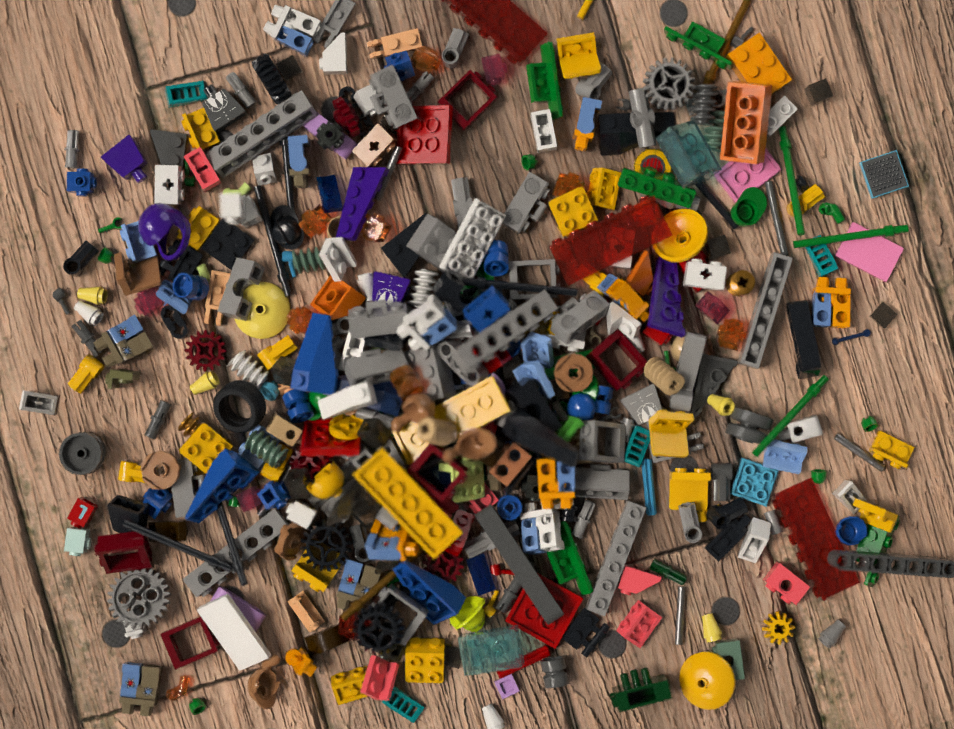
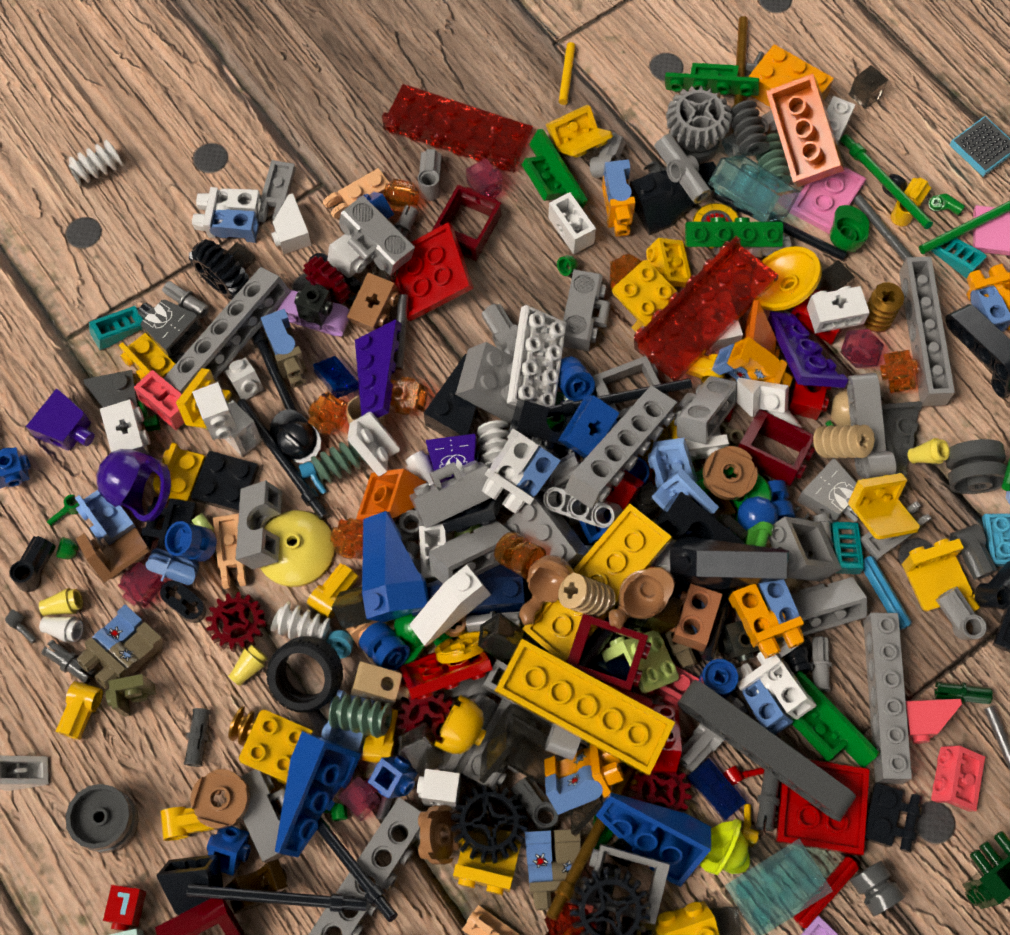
camera: 20 degrees left, 20 degrees down
(229, 180) = (187, 403): none -> yellow bracket

